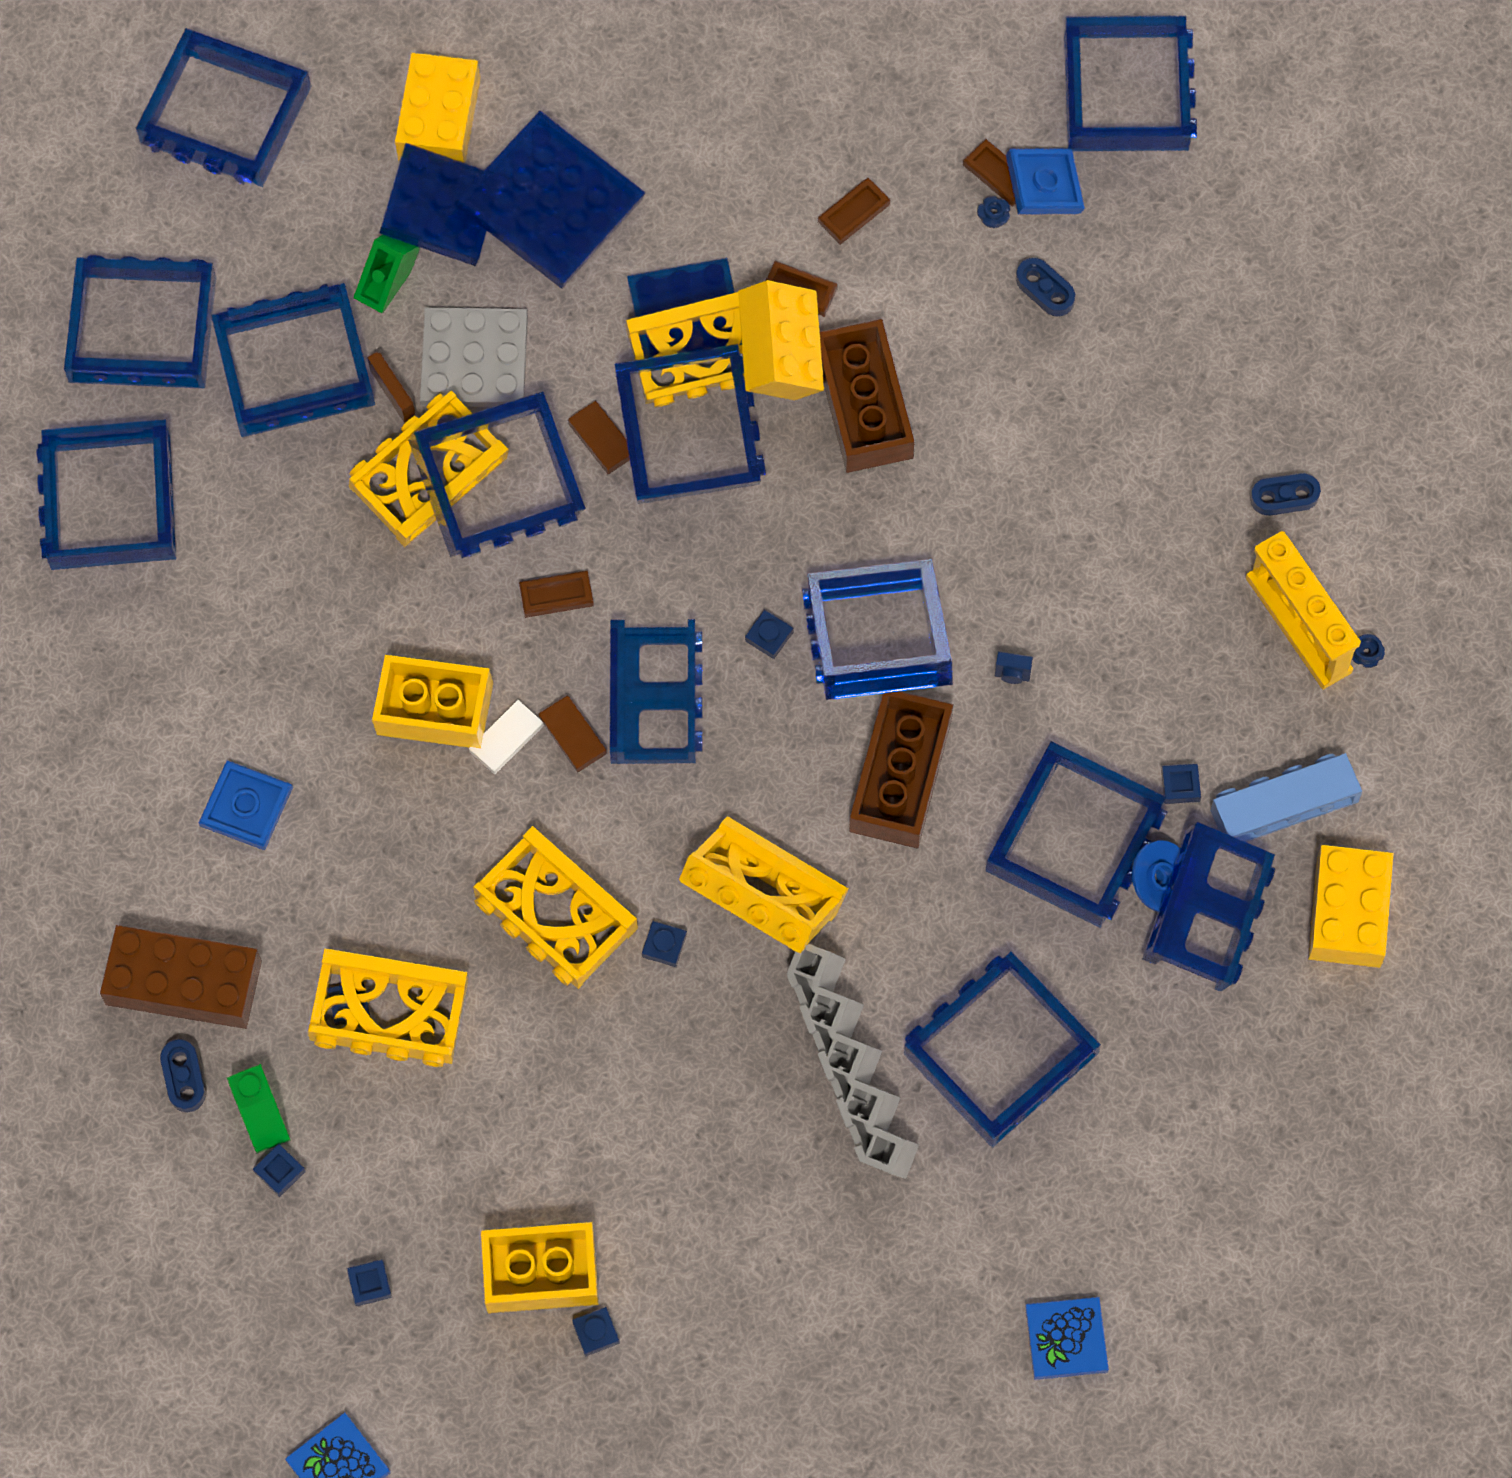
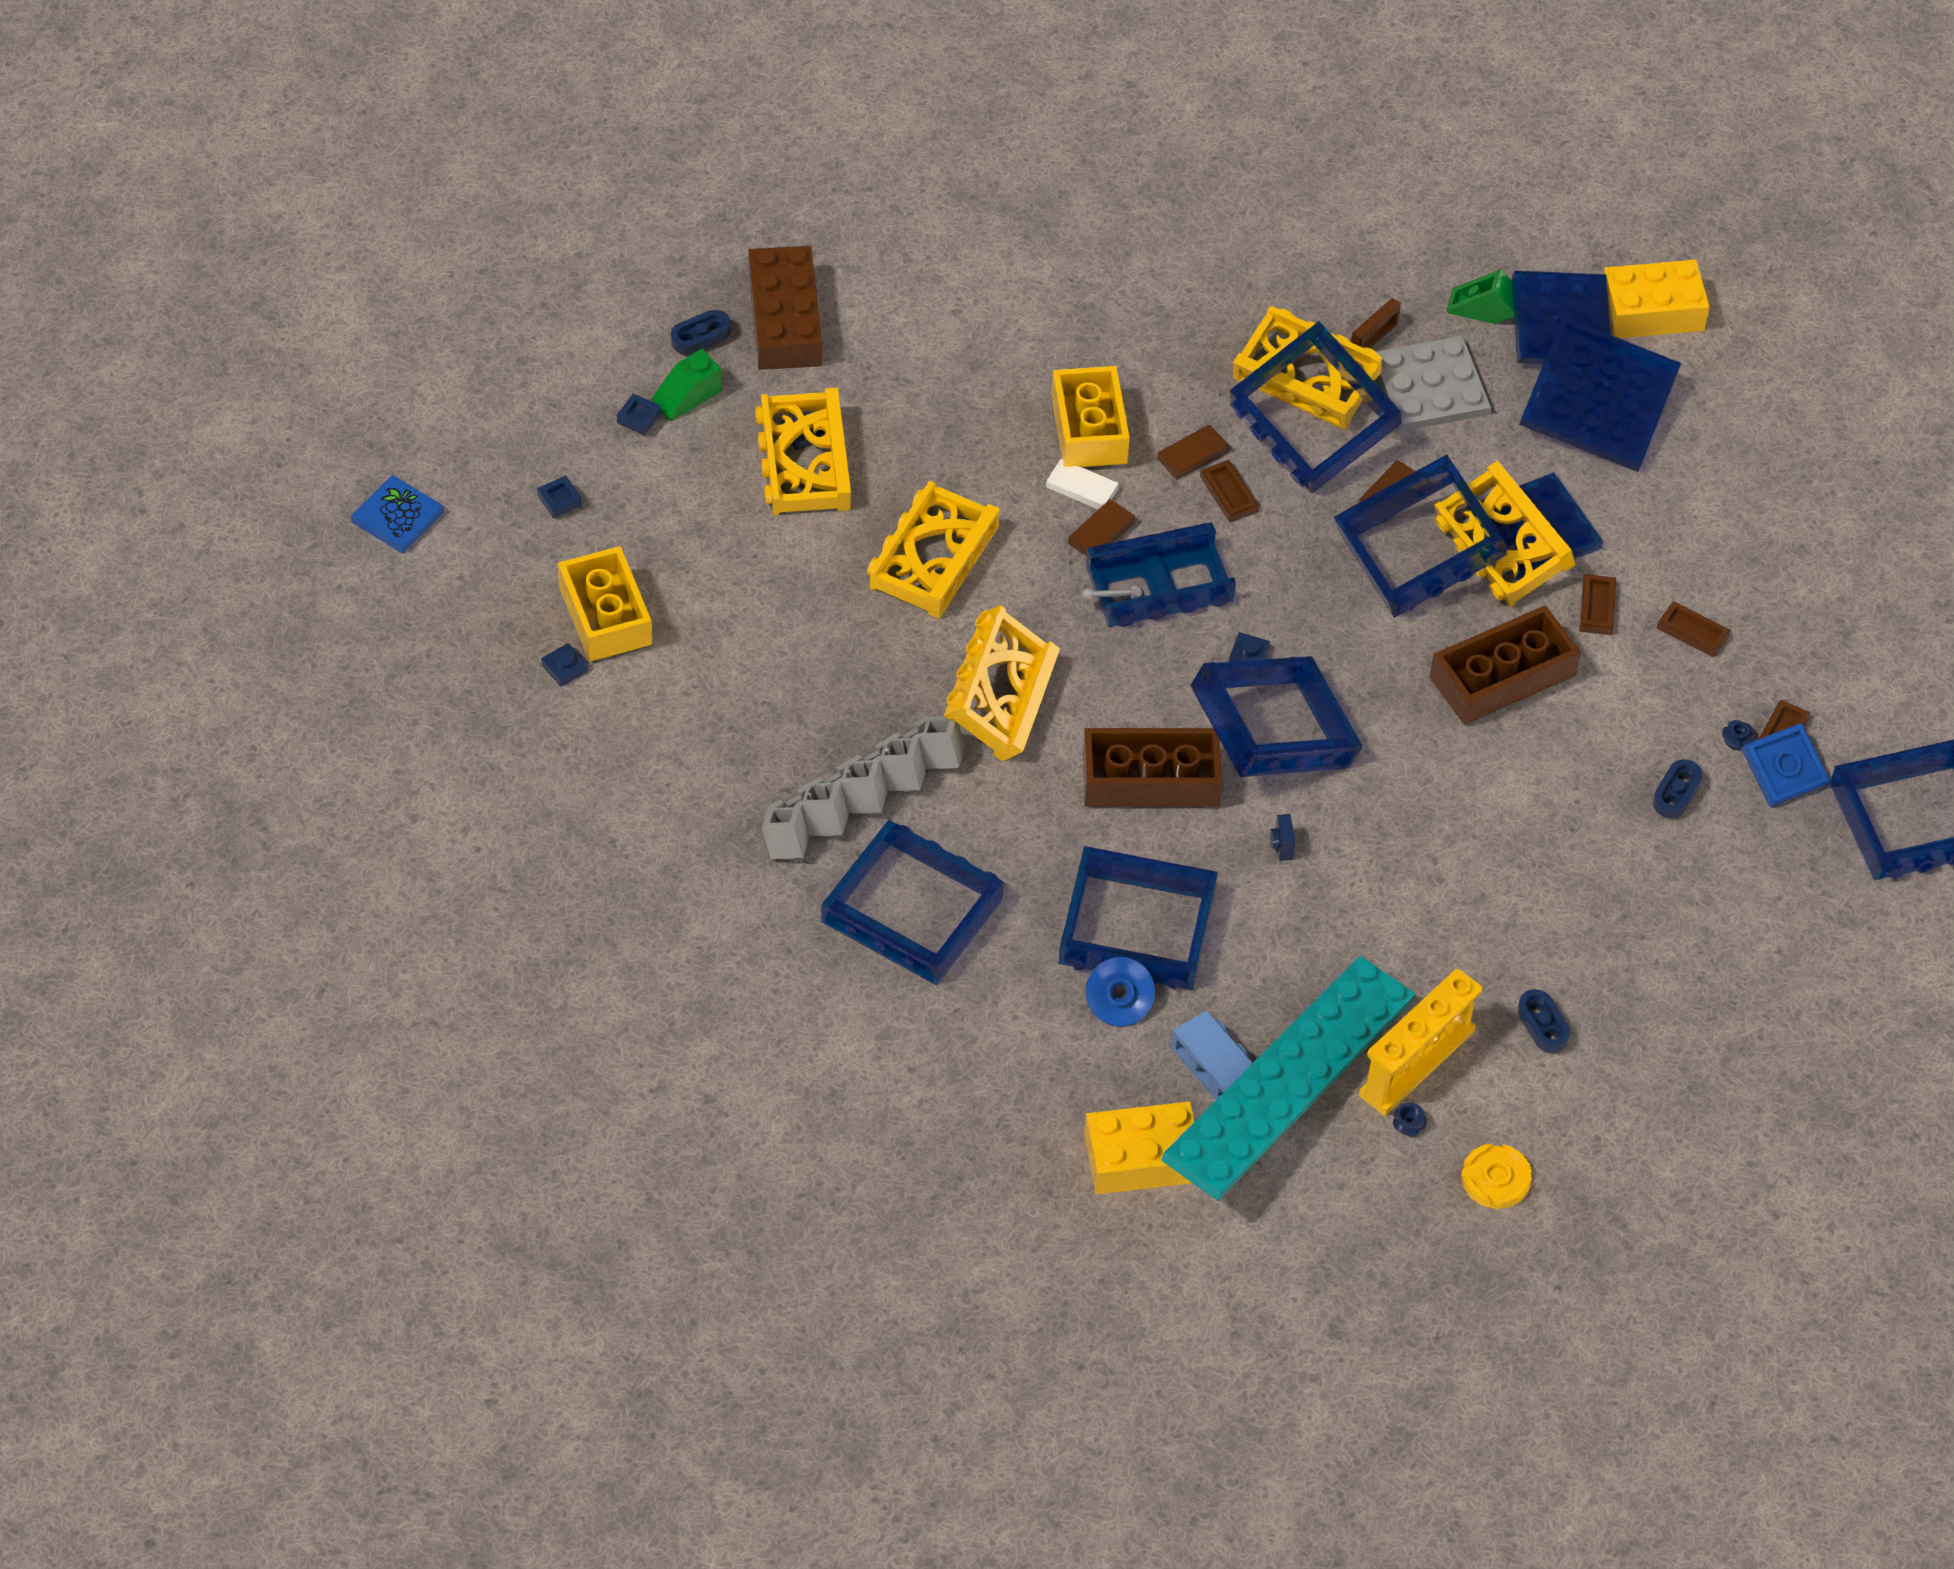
camera: 70 degrees right, 15 degrees down
(104, 436) = (1207, 198): clear blue window -> none
(133, 371) = (1373, 187): clear blue window -> none
(241, 62) = (1582, 194): clear blue window -> none
(245, 805) = (955, 321): blue tile -> none
(304, 407) = (1383, 199): clear blue window -> none
(495, 615) = (1192, 452): none -> reddish brown tile
(661, 725) = (1134, 592): none -> light grey hinge
(664, 944) = (930, 638): dark blue plate -> none
(780, 340) = (1523, 575): yellow brick -> none
(1066, 1338) = (659, 1010): blue tile -> none
(1181, 783) = (1218, 992): dark blue plate -> none
(1192, 895) = (1103, 1008): clear blue window -> none
(1313, 745) = (1288, 1078): none -> teal plate
(1444, 603) = (1486, 1177): none -> yellow tile

